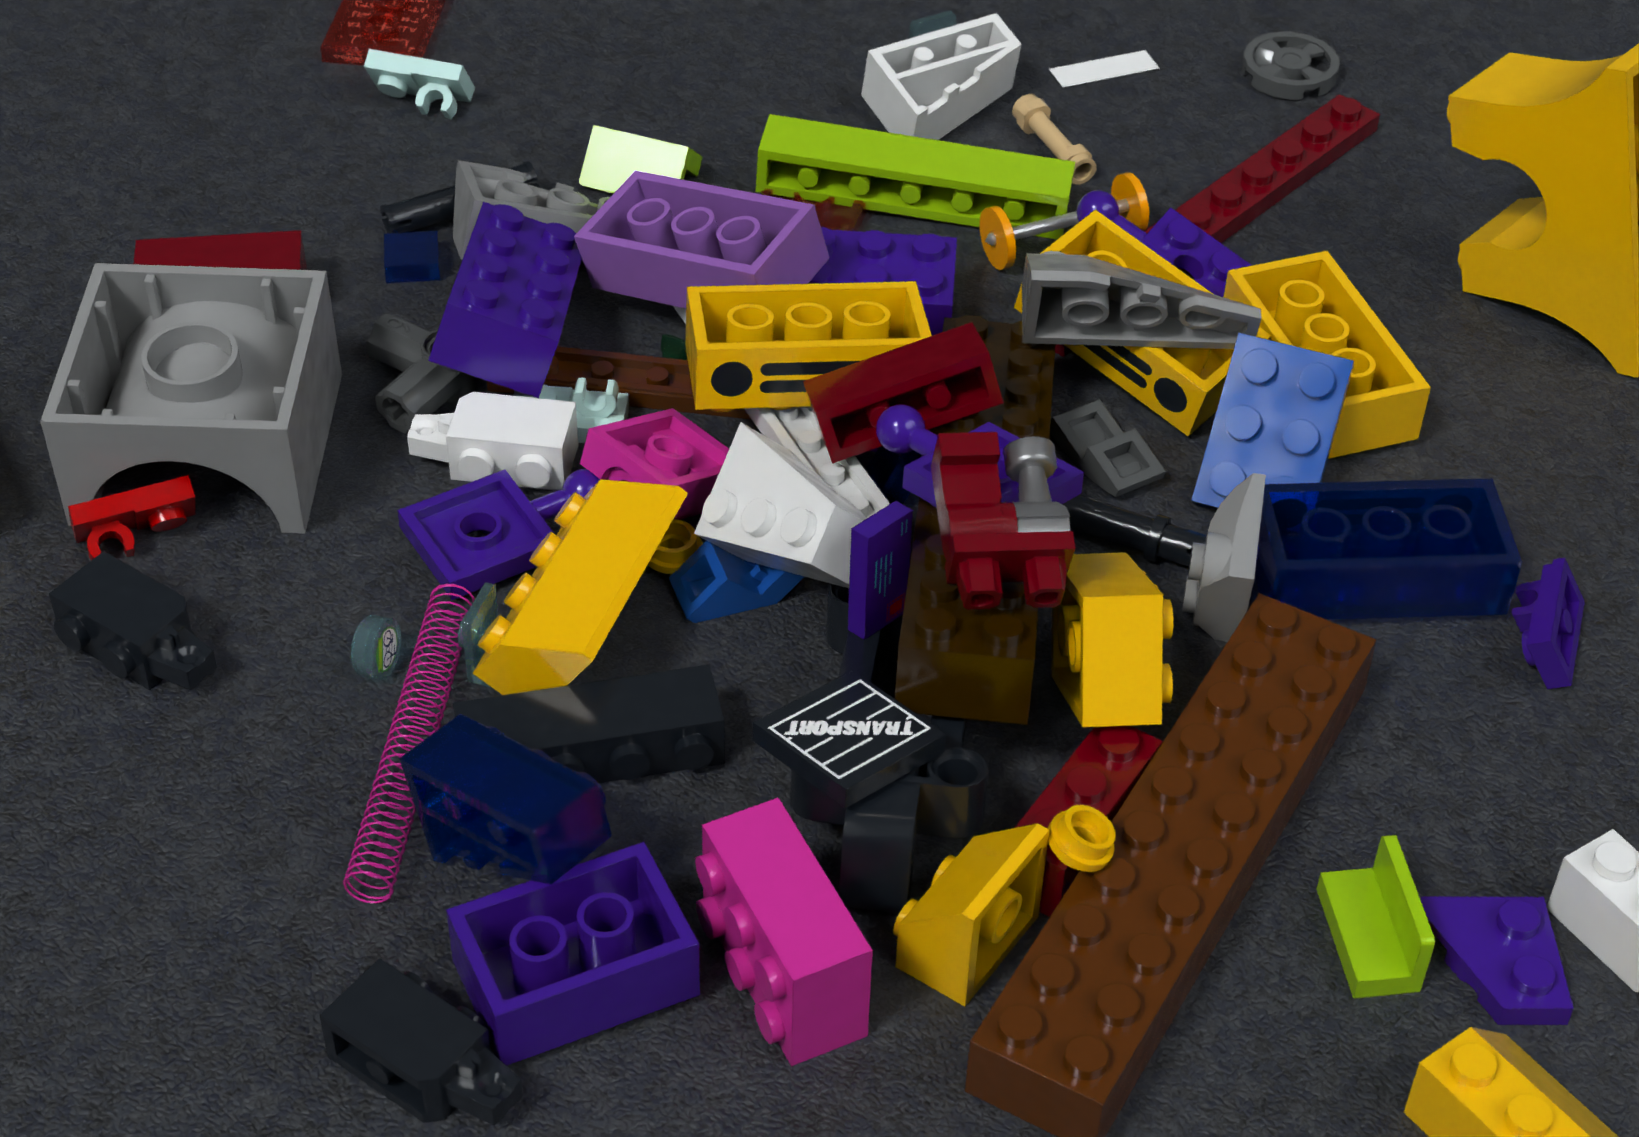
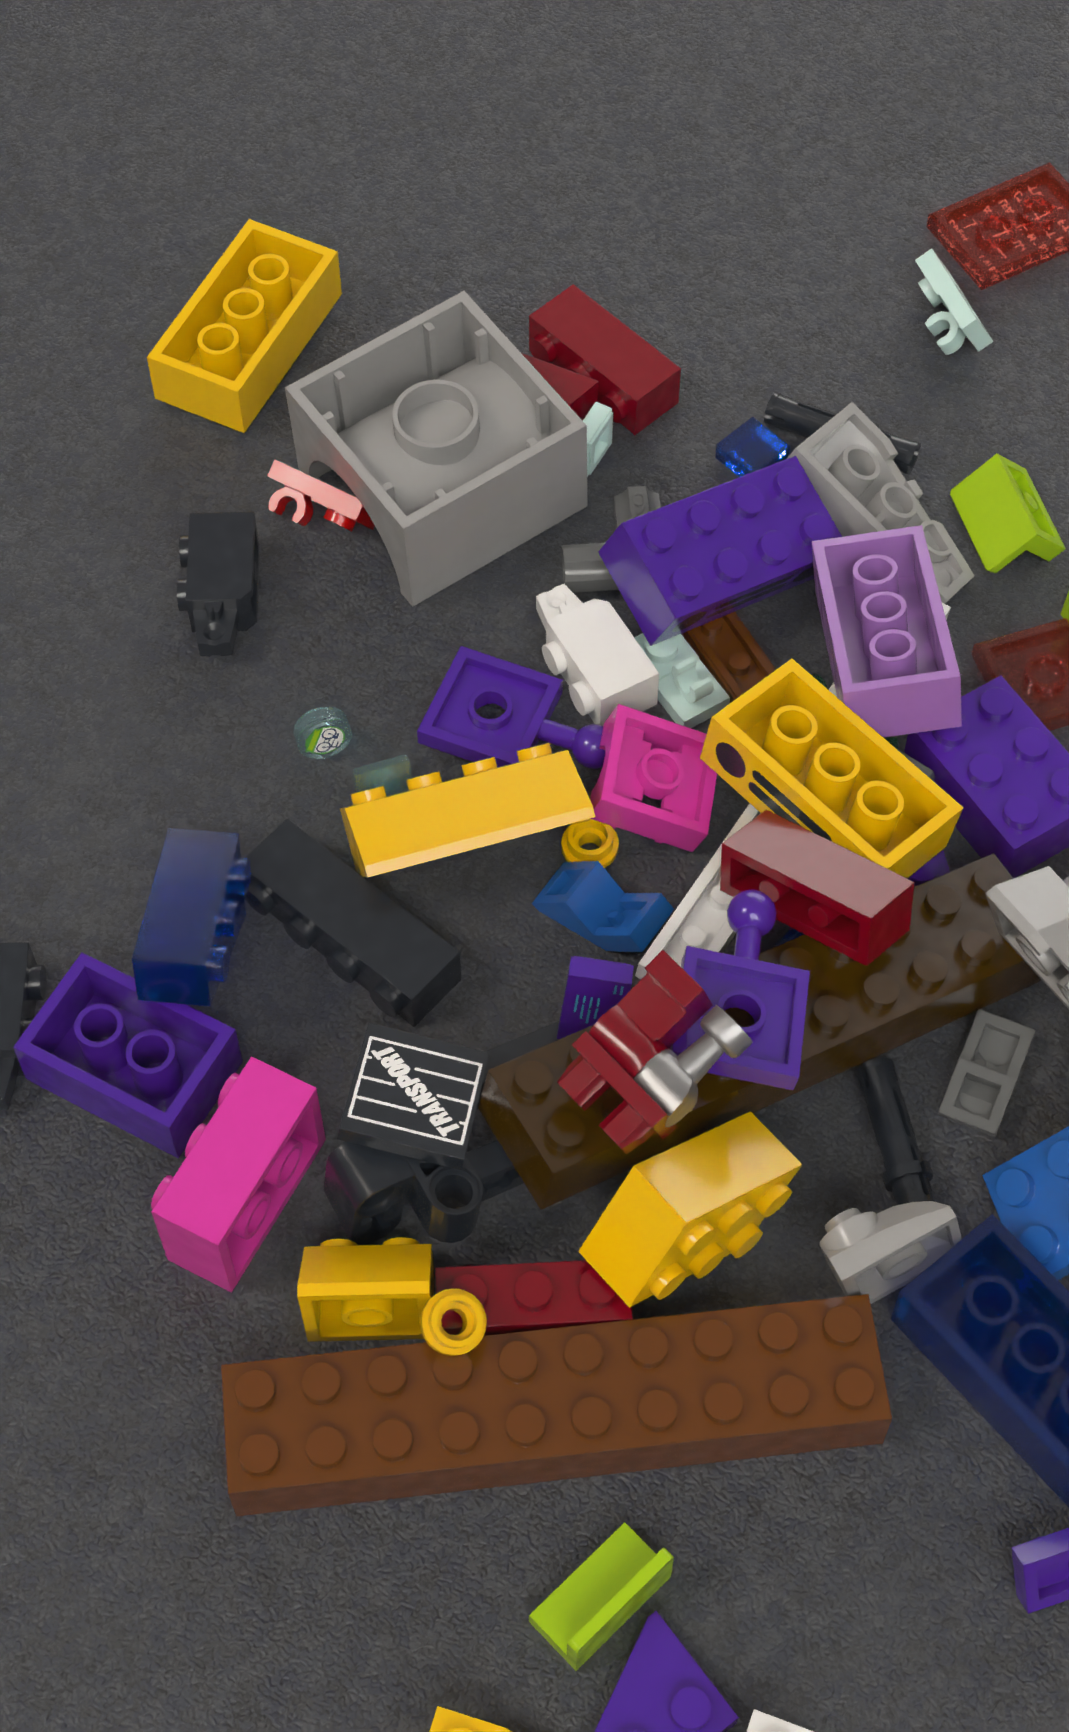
camera: 55 degrees right, 15 degrees up
(415, 656) = (403, 742): dark pink piece -> none
(778, 512) = (631, 887): white wedge -> none

